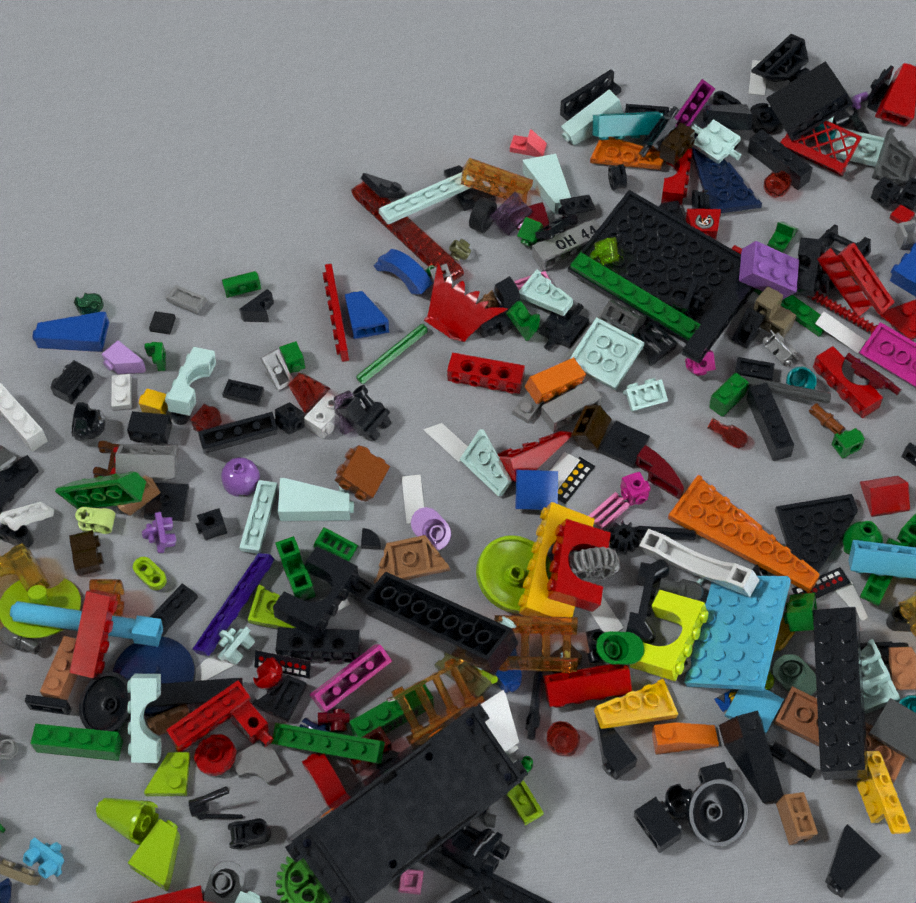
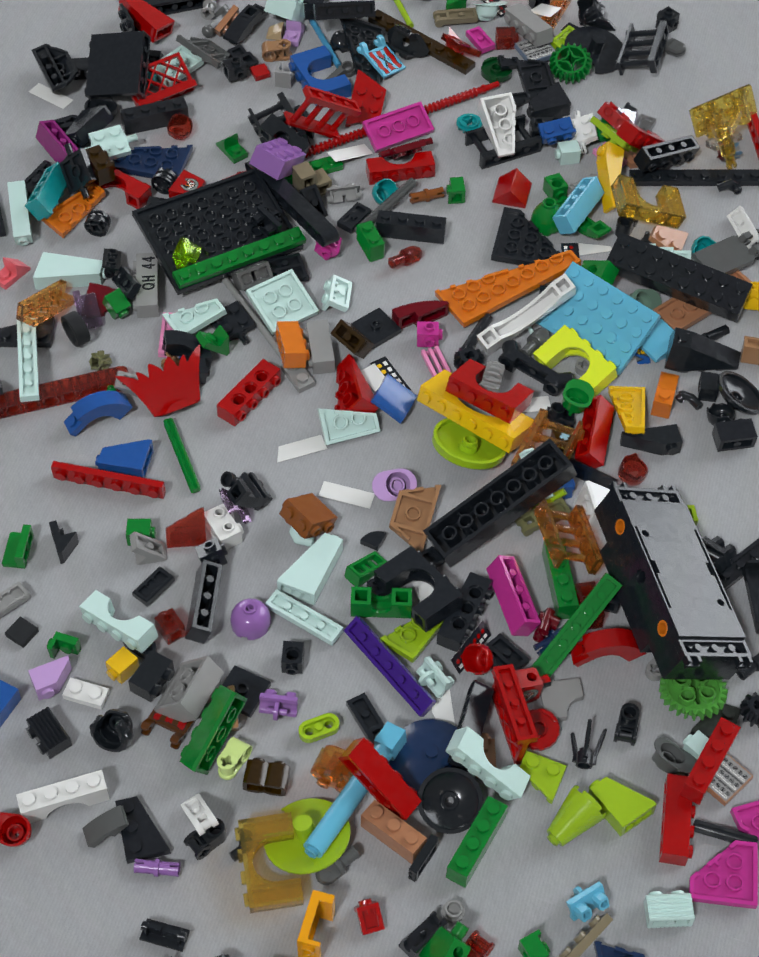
camera: 70 degrees left, 5 degrees down
(691, 763) = (691, 398): none -> black arm

